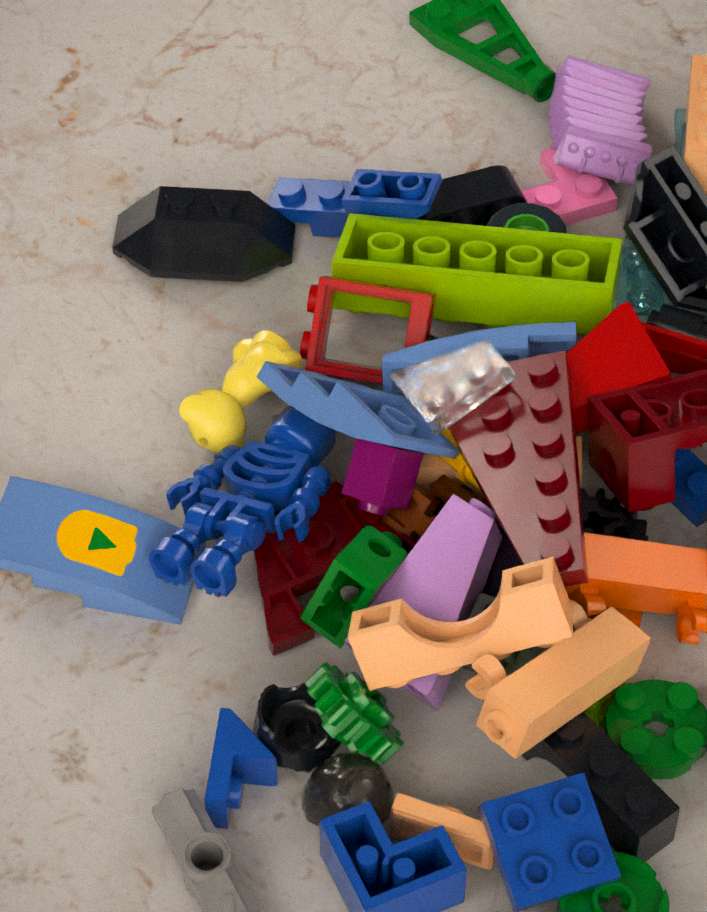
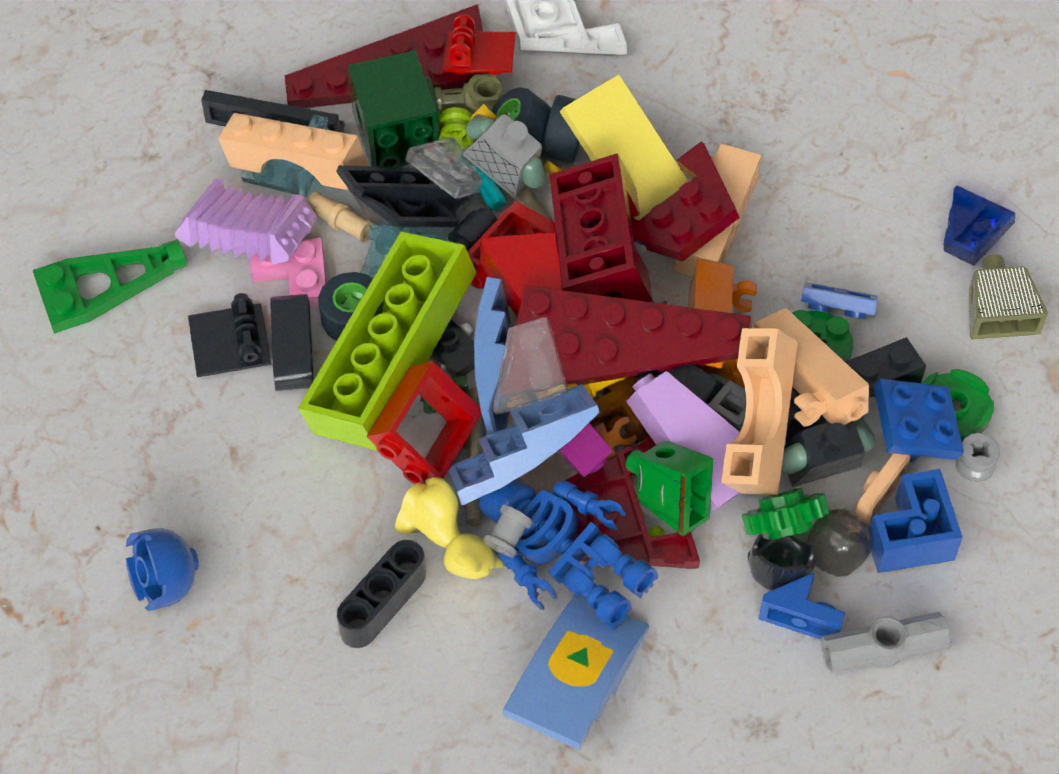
camera: 75 degrees left, 5 degrees up
(127, 163) = (160, 567): none -> blue cylinder
(148, 354) = (384, 576): none -> black beam
(203, 235) = (259, 536): black wedge -> none
(239, 431) = (508, 531): none -> light grey bush
(370, 192) = (275, 408): blue slope -> none
(447, 149) = (229, 338): none -> black hinge
(467, 752) = (826, 451): none -> black torso

